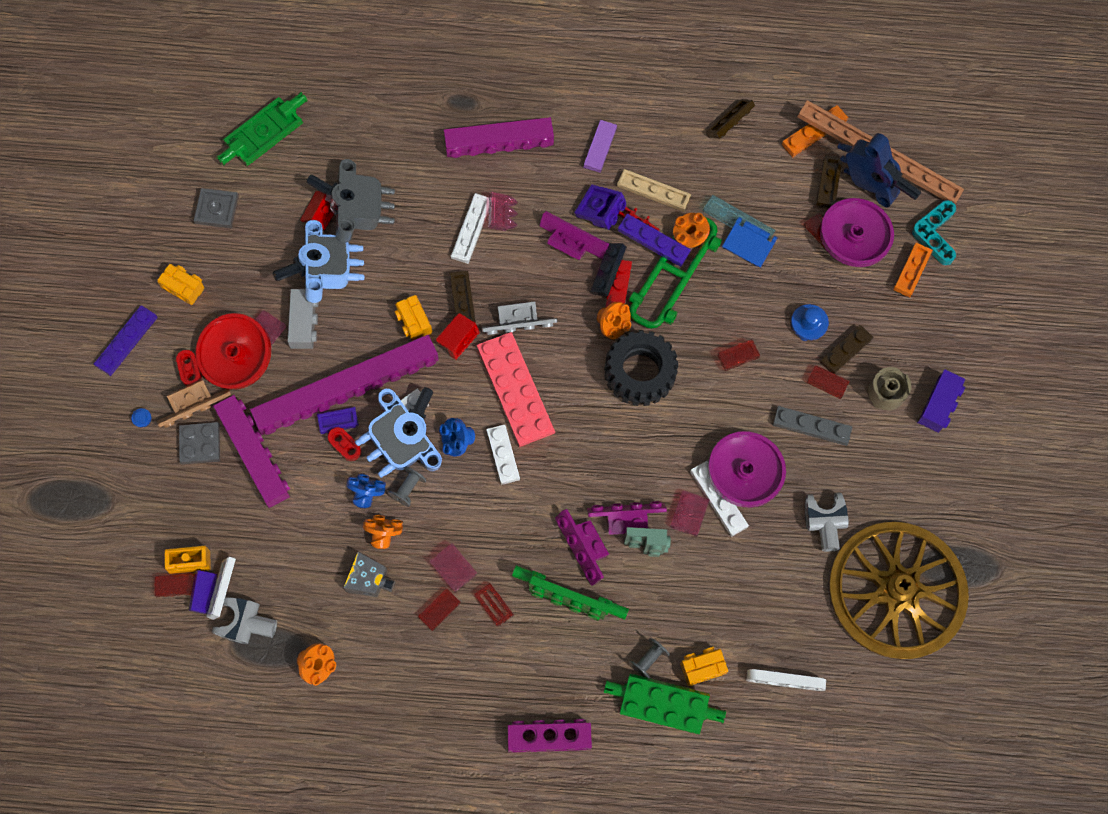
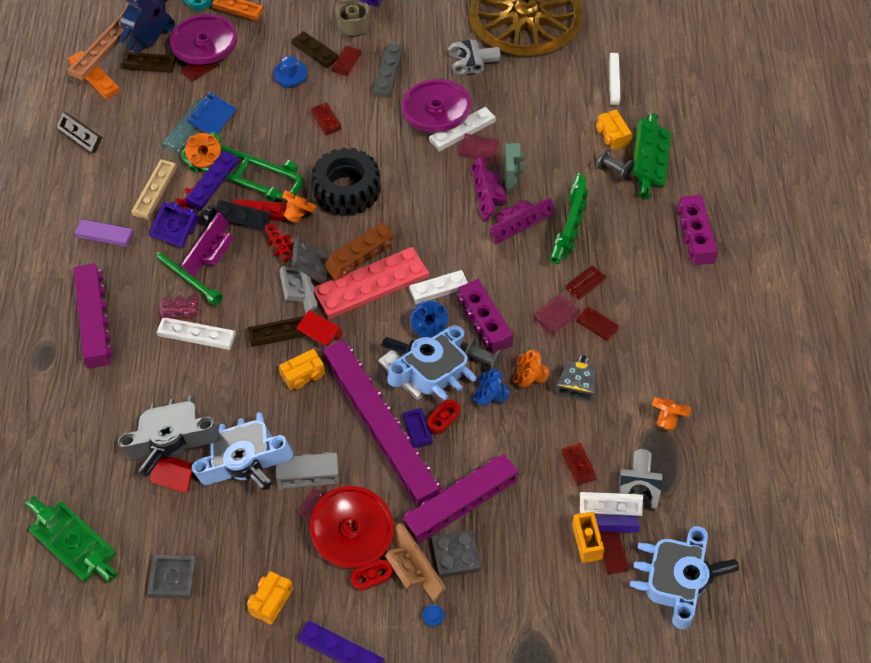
camera: 90 degrees left, 15 degrees down
(141, 631) = (680, 573): none -> piece
(272, 565) = (578, 464): none -> clear red plate
(450, 503) = (479, 304): none -> magenta brick
(510, 242) = (213, 296): none -> green piece
(538, 327) = (309, 260): none -> flat silver plate
(547, 378) = (359, 251): none -> dark orange brick
(564, 308) = (280, 239): none -> red piece
(610, 237) = (208, 215): none -> black tile

